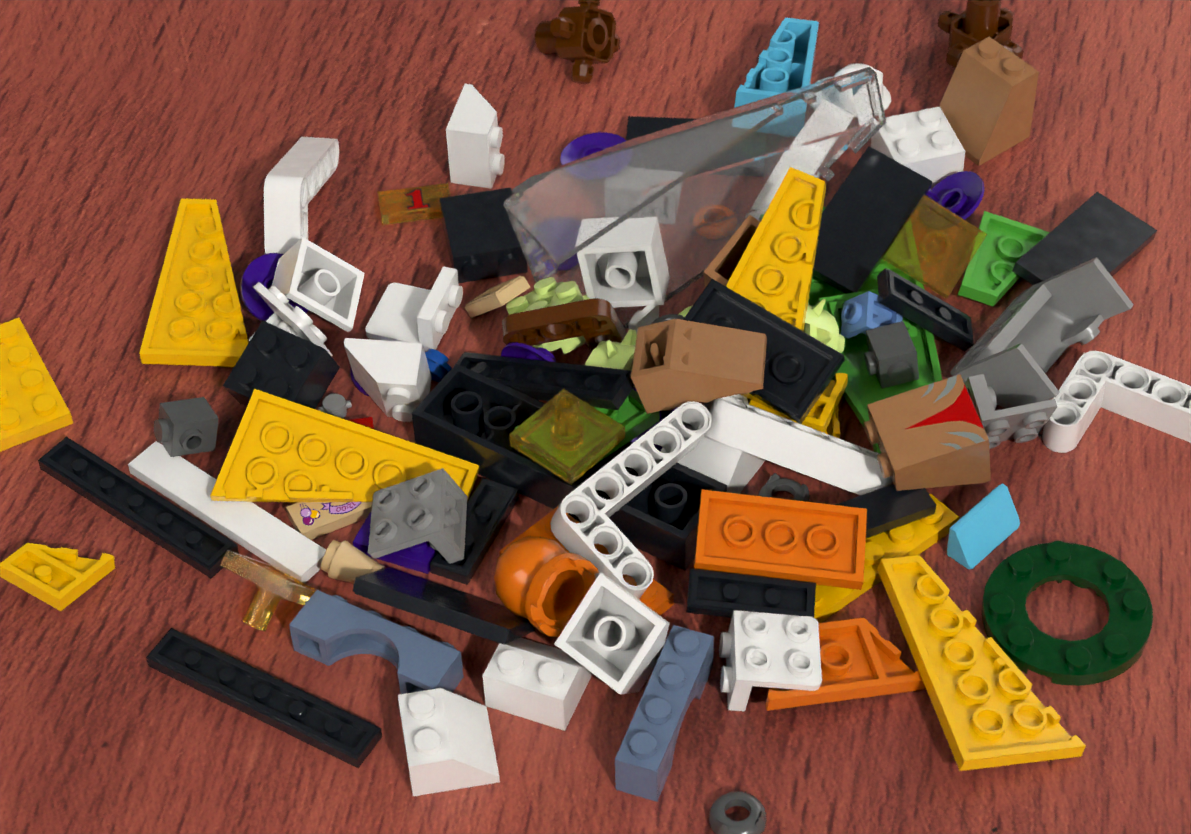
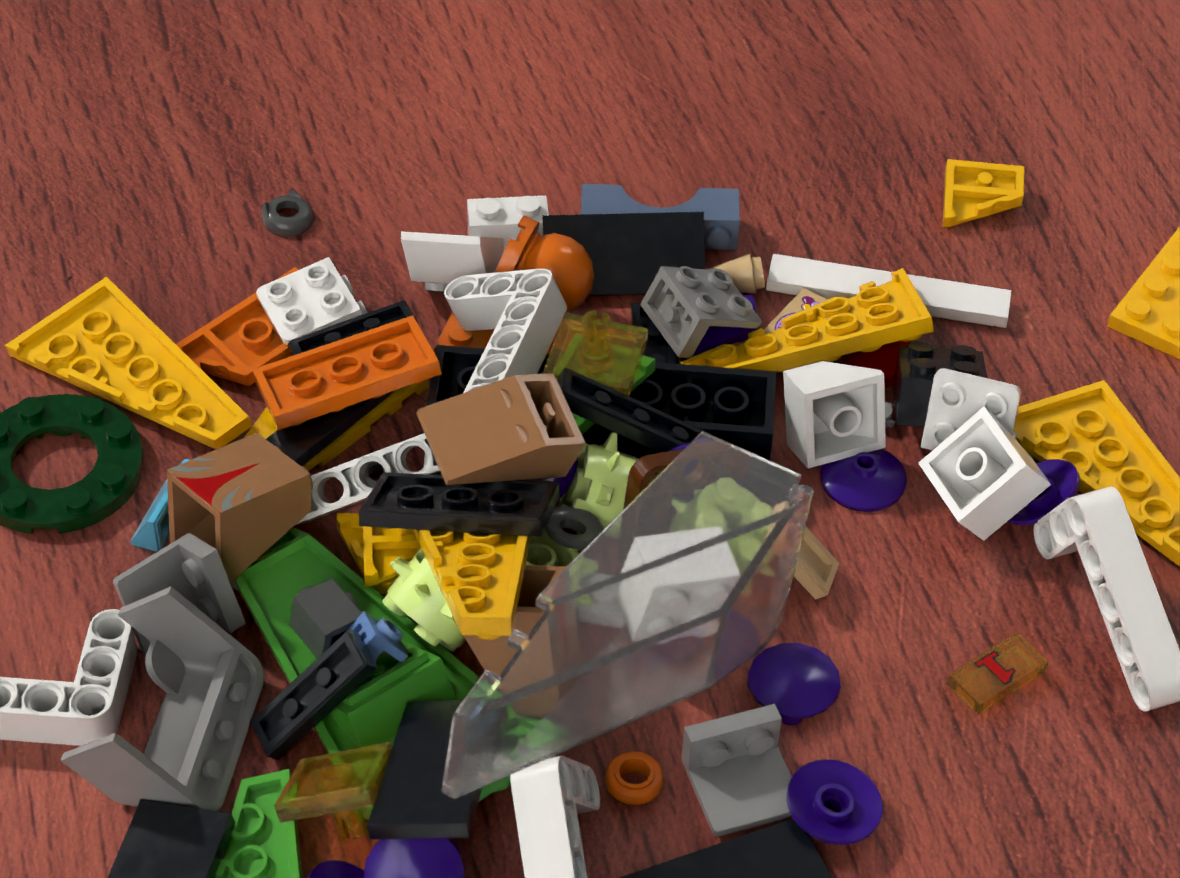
camera: 150 degrees right, 0 degrees up
(137, 506) = (1021, 276): black tile -> none
(186, 426) = (985, 321): dark grey brick -> none
(265, 697) = (729, 172): black tile -> none
(271, 586) = (781, 217): clear yellow tile -> none
(415, 312) = (878, 527): white bracket -> none
(437, 364) = (820, 466): blue plate -> none
(446, 742) = (553, 165): white slope -> none
(474, 141) = (985, 741): white slope -> none
(481, 236) = (882, 643): black brick -> none
(652, 735) = (382, 240): sand blue arch -> none

